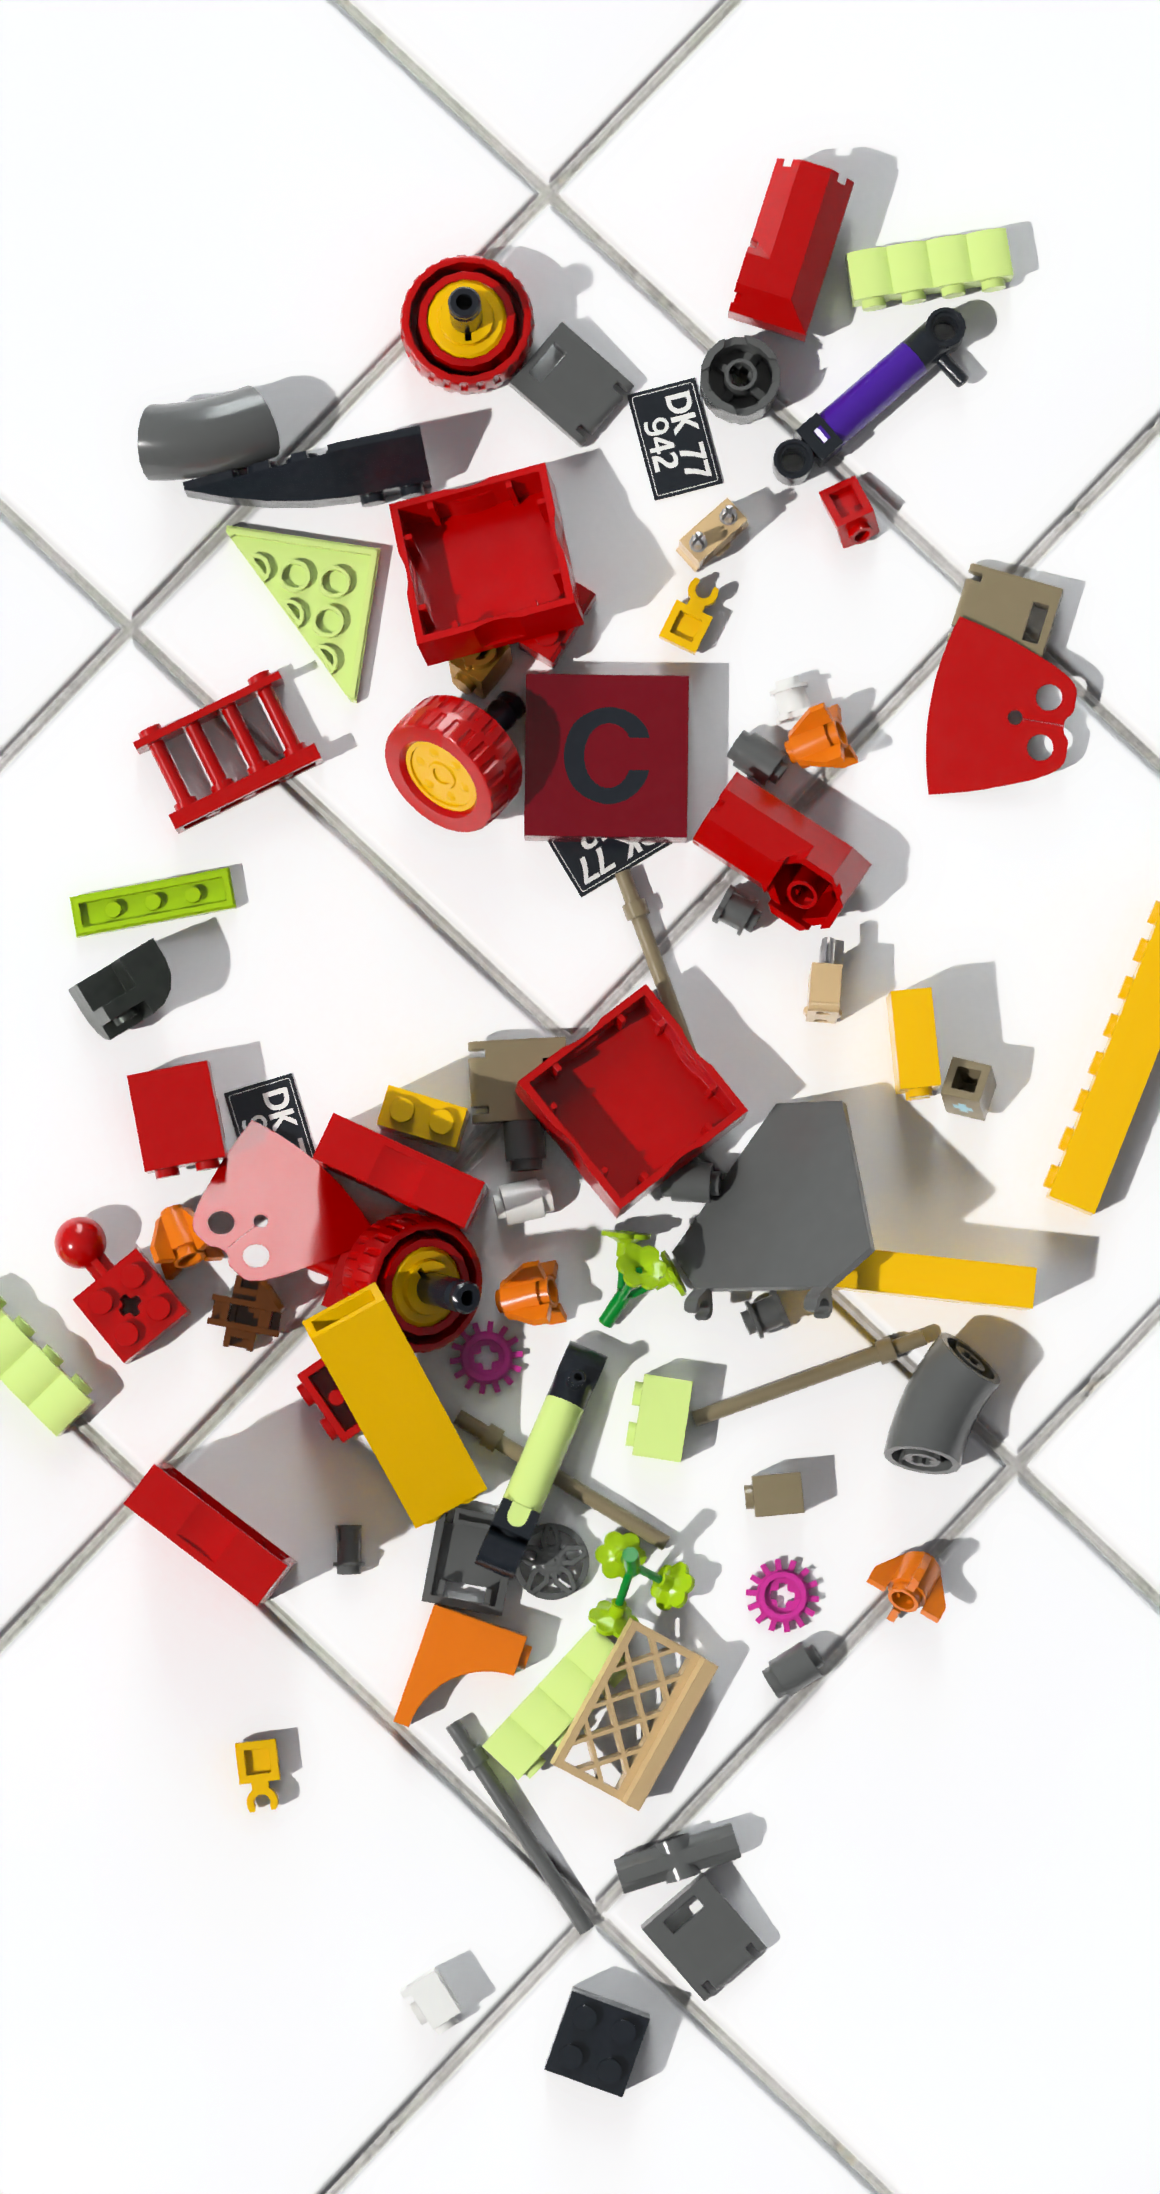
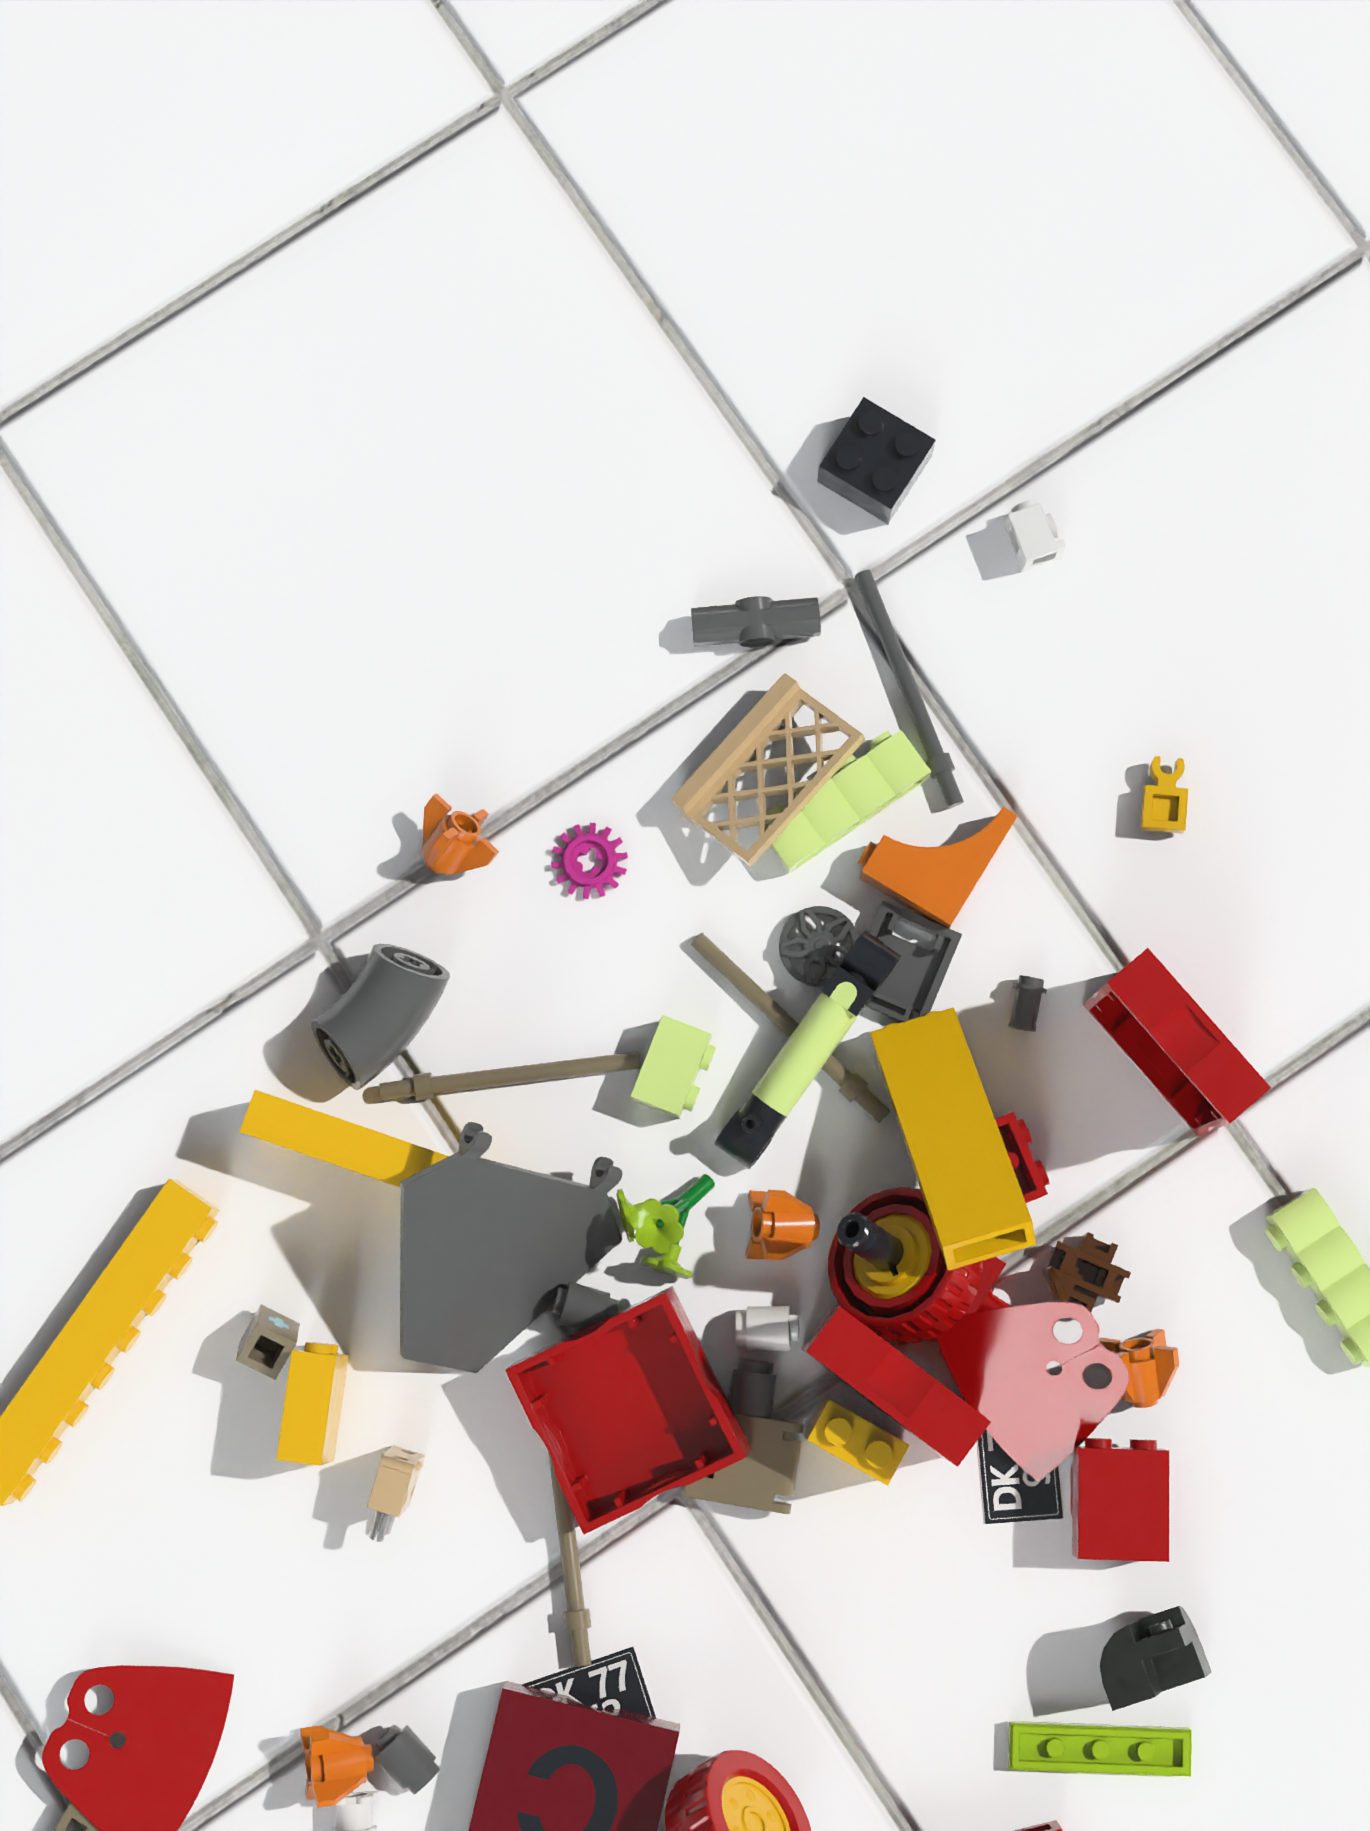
camera: 165 degrees left, 5 degrees down
(82, 1245) = (1248, 1386): red brick -> none
(497, 1344) = (829, 1158): dark pink gear -> none
(624, 1558) = (743, 934): lime plant -> none
(708, 1943) = (743, 531): dark grey container -> none
(737, 911) = (468, 1591): dark grey brick -> none
(765, 1315) = (540, 1149): dark grey brick -> none
(775, 1494) = (572, 962): dark tan brick -> none
(783, 853) = (403, 1646): red brick -> none
(793, 1669) = (595, 782): dark grey brick -> none

